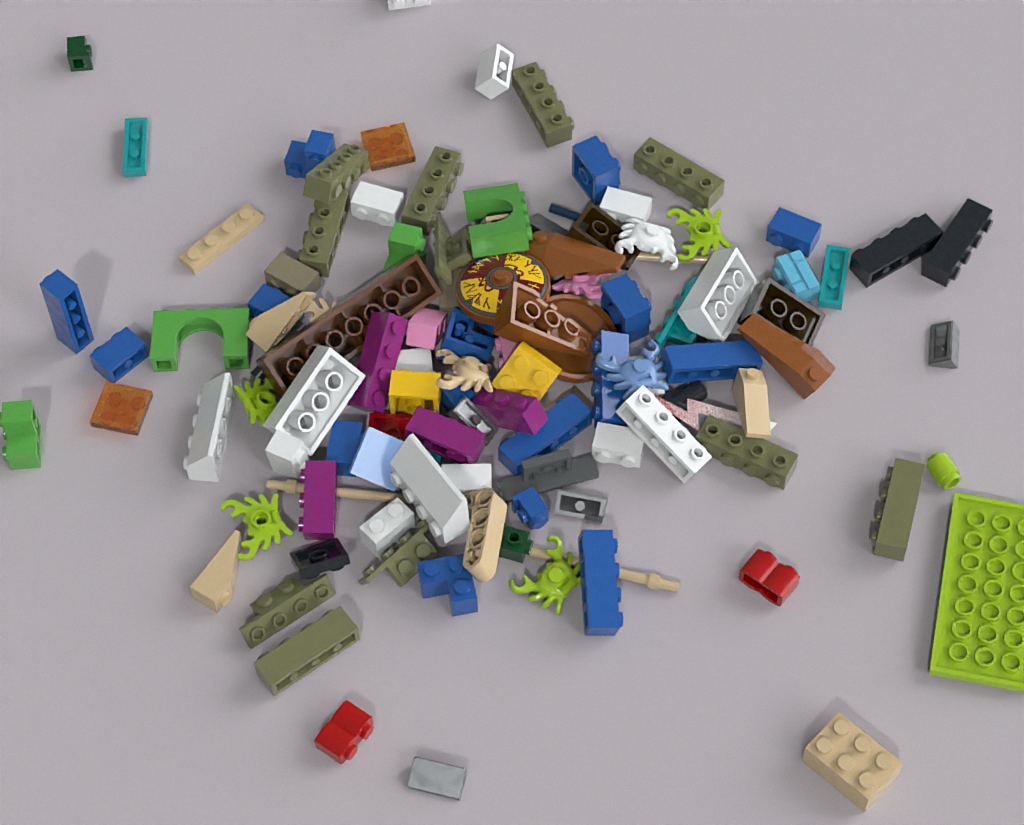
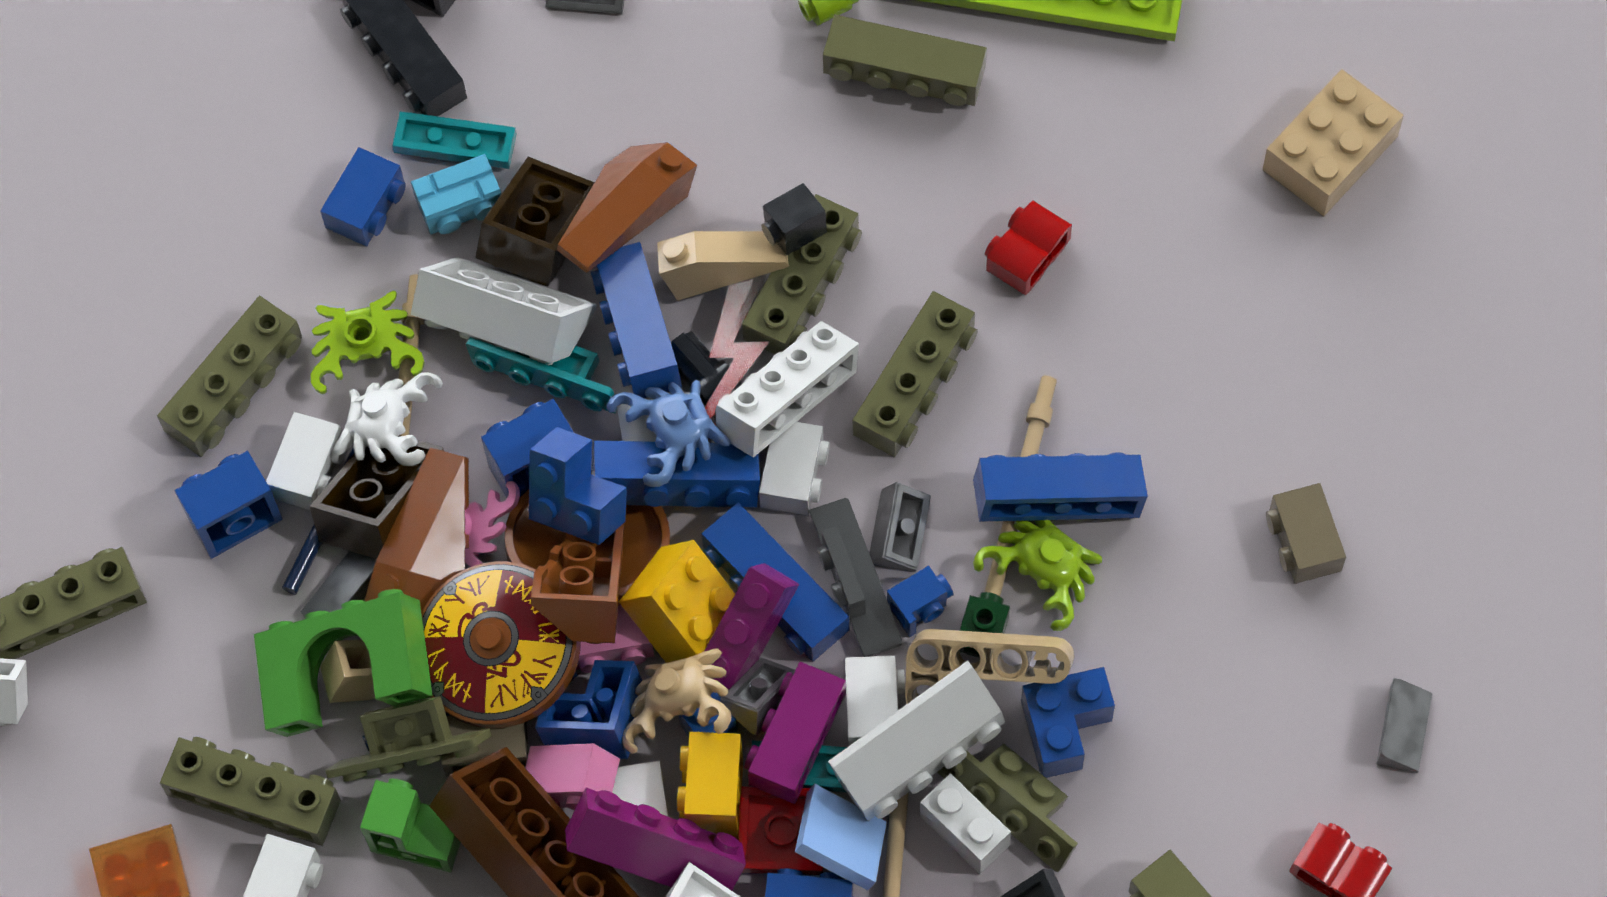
camera: 90 degrees left, 10 degrees up
(568, 727) = (1306, 533): none -> dark tan brick
(591, 315) = (567, 494): none -> blue brick
(680, 511) = (914, 374): none -> olive brick
(773, 433) = (794, 219): none -> black brick

